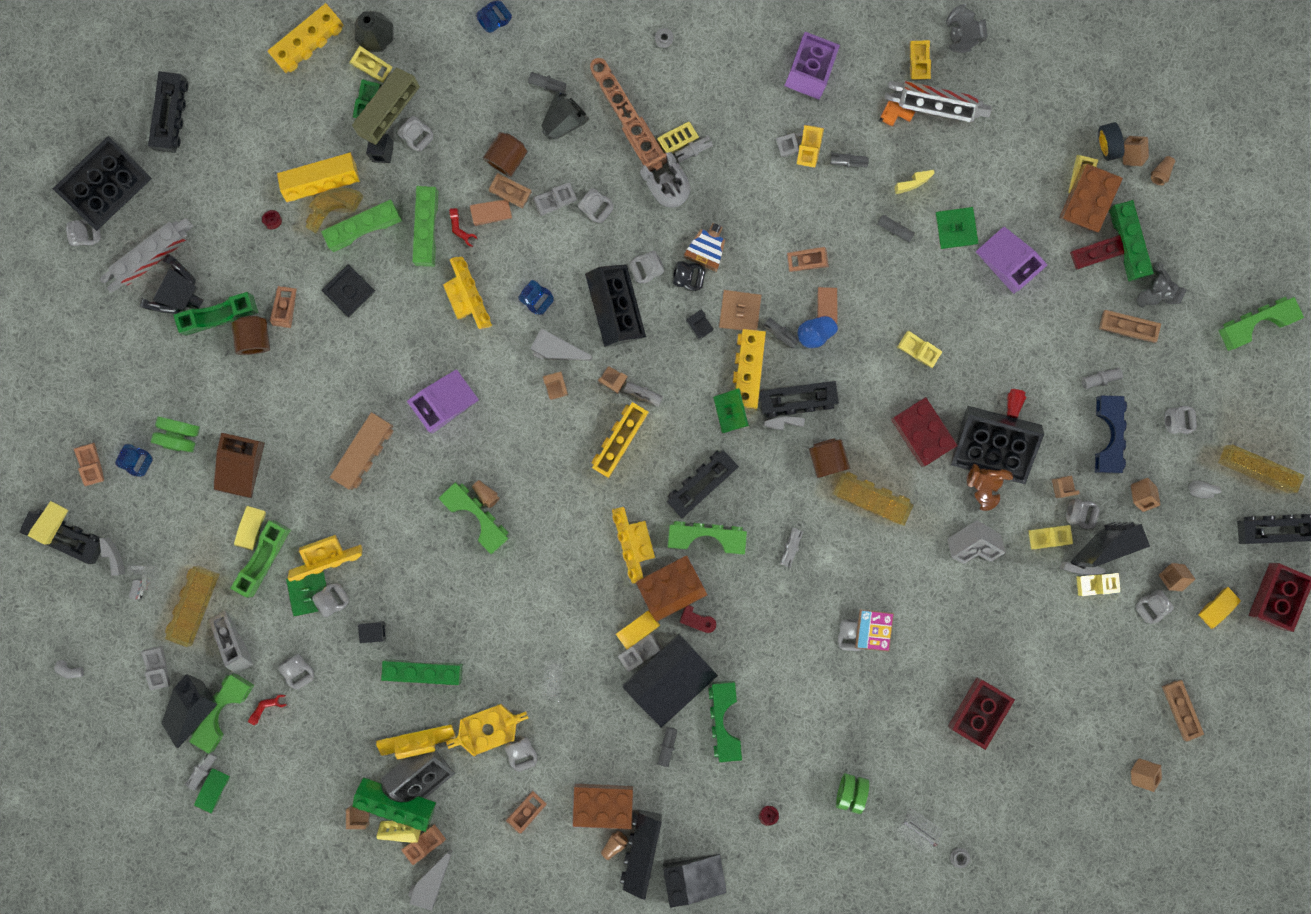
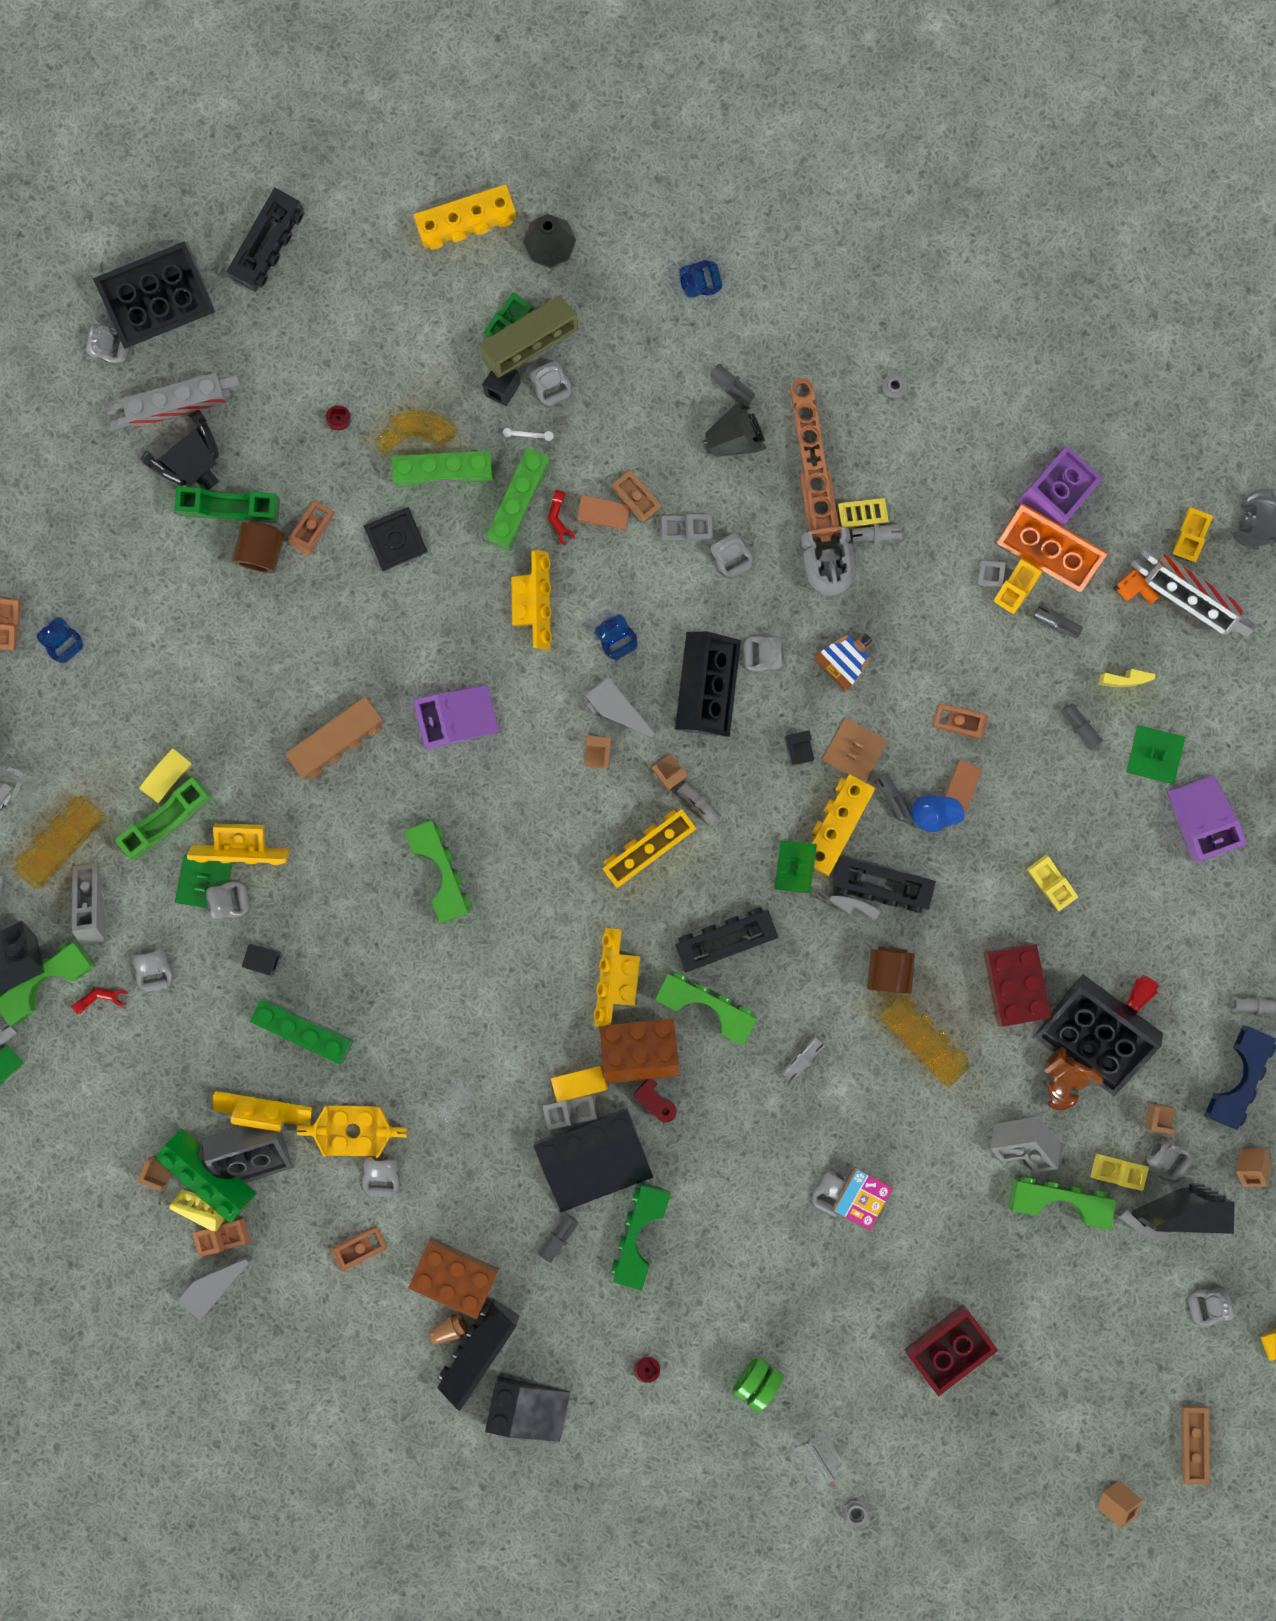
camera: 20 degrees right, 0 degrees up
(175, 434) = (120, 631): bright green wheel -> none
(237, 464) = (181, 695): reddish brown slope -> none
(318, 177) = (413, 389): yellow brick -> none
(369, 64) = (529, 277): light yellow slope -> none
(429, 173) = (548, 436): none -> white hinge
(485, 494) = (462, 849): medium nougat cone -> none
(505, 154) = (648, 450): reddish brown piece -> none
(683, 275) = (804, 680): black piece -> none
(823, 108) = (1051, 547): none -> orange slope
(1043, 570) = (1030, 1197): none -> bright green arch
(1098, 584) = (1154, 1252): light yellow slope -> none
(1177, 577) = (1252, 1281): medium nougat panel -> none

